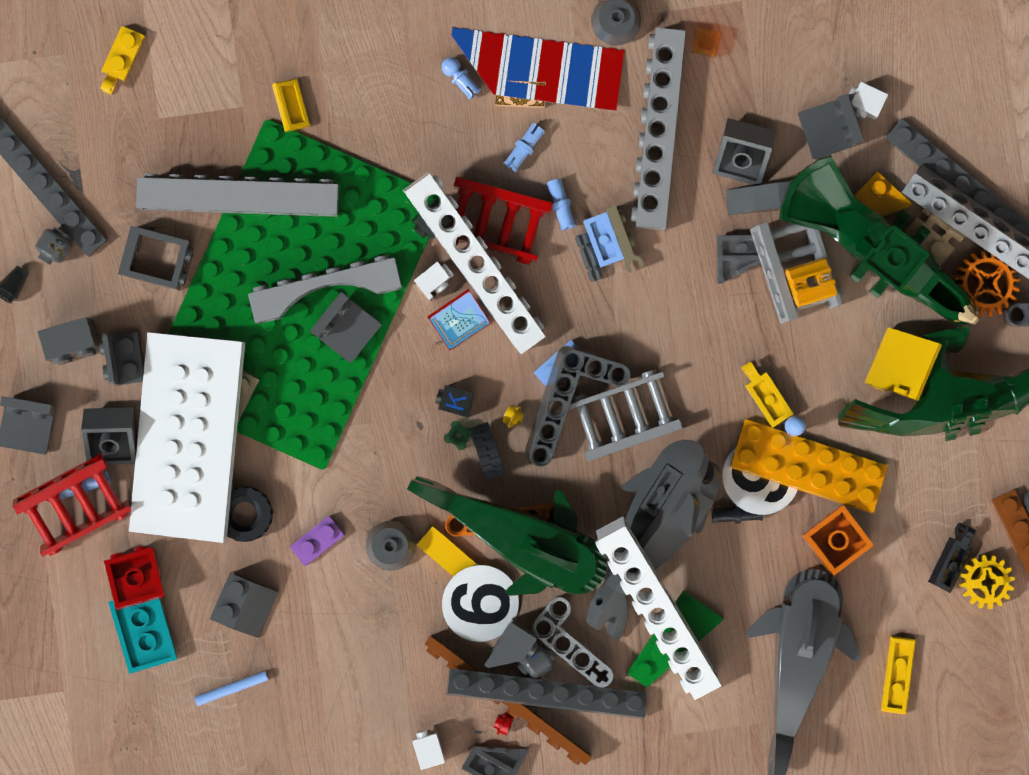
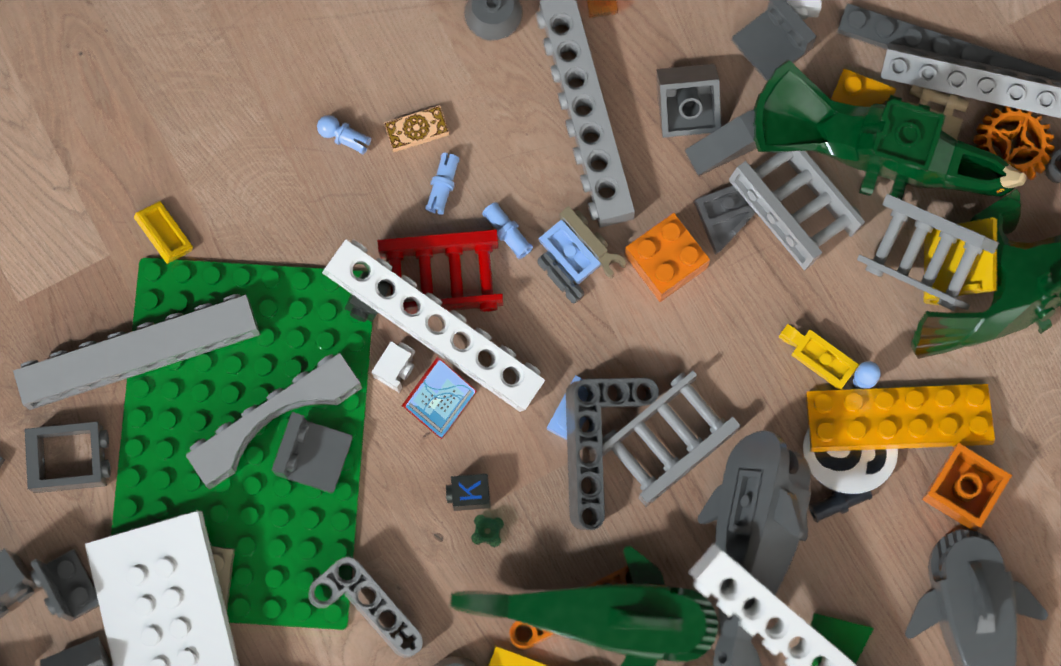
camera: 20 degrees left, 10 degrees down
(347, 465) = (369, 611): none -> light grey beam
(487, 451) = (527, 533): black tyre -> none
(513, 416) = (542, 485): yellow plate -> none
(571, 71) = (462, 85): sticker -> none
(677, 273) = (667, 257): none -> orange brick
(822, 279) = (831, 201): light orange piece -> none
(901, 342) = (949, 234): none -> light grey fence

